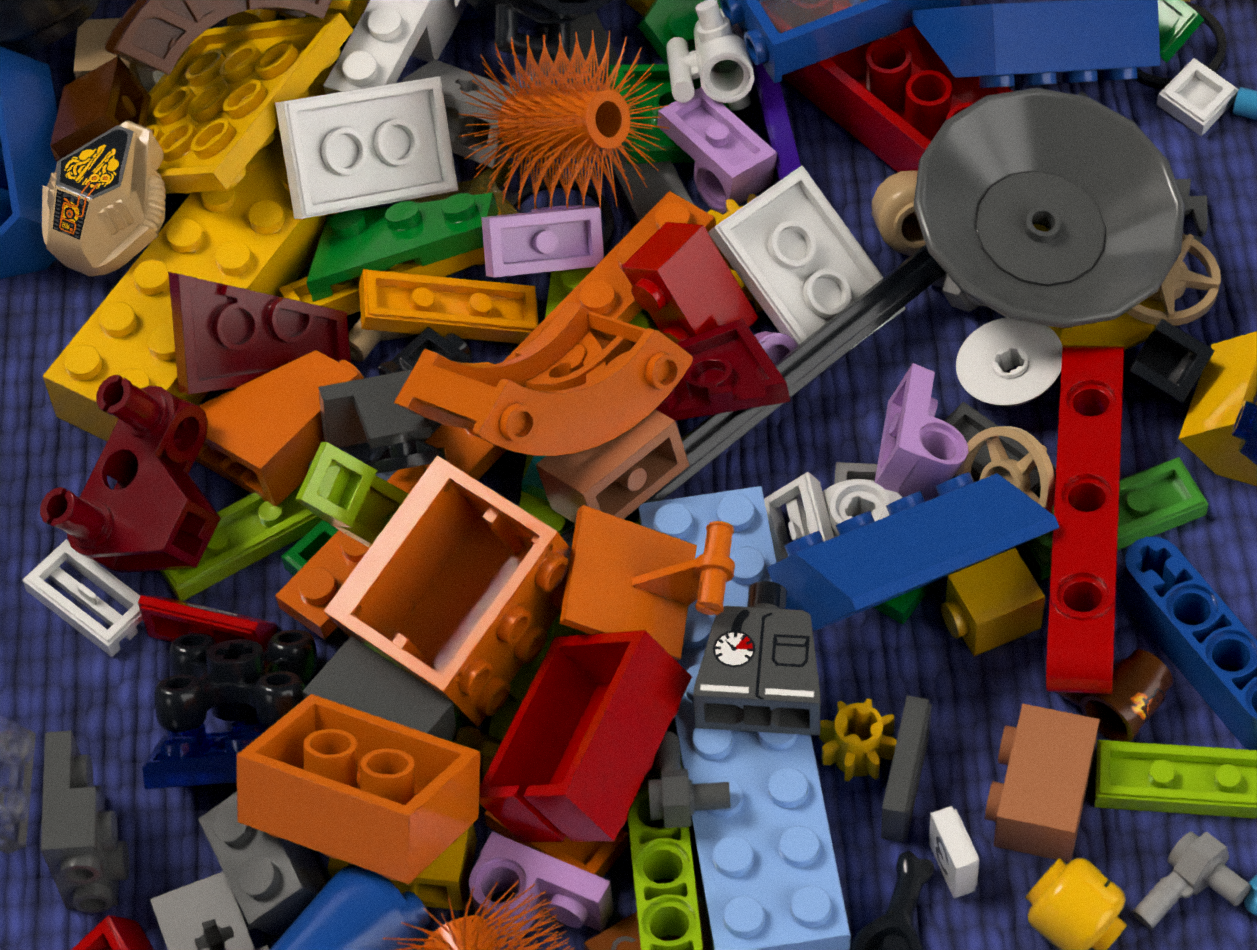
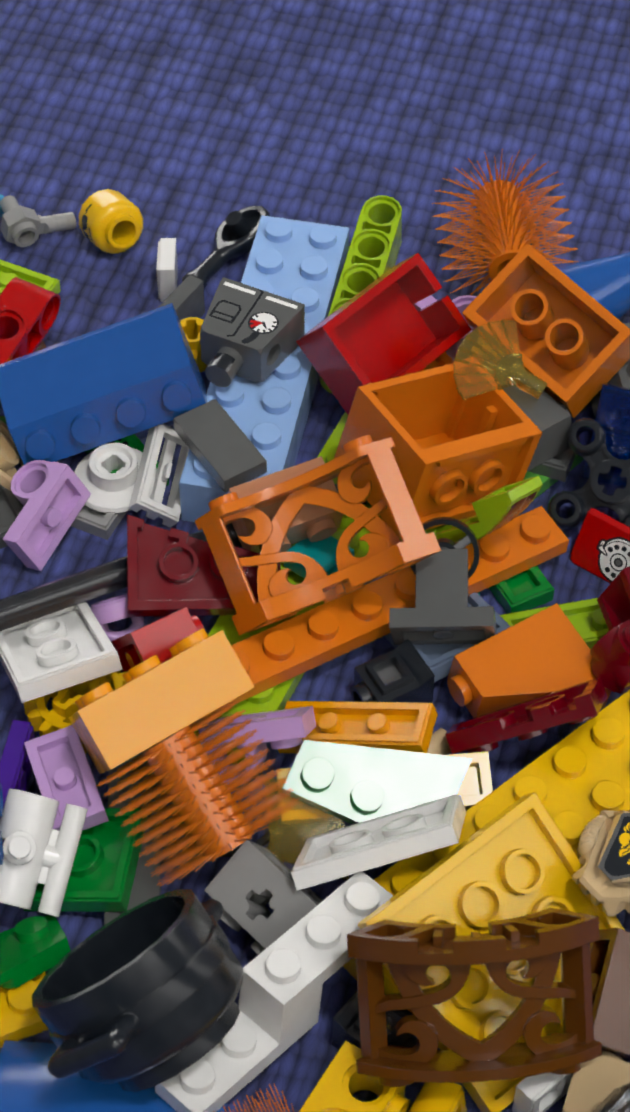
camera: 165 degrees left, 5 degrees down
(413, 677) = (492, 361): none -> clear yellow hand
(634, 162) = (159, 699): none -> light orange brick
(642, 578) = (302, 401): orange plate -> none
(674, 795) = (334, 291): dark grey piece -> none
(706, 497) = (220, 445): none -> dark grey tile
(1044, 782) = (91, 286): nougat brick -> none

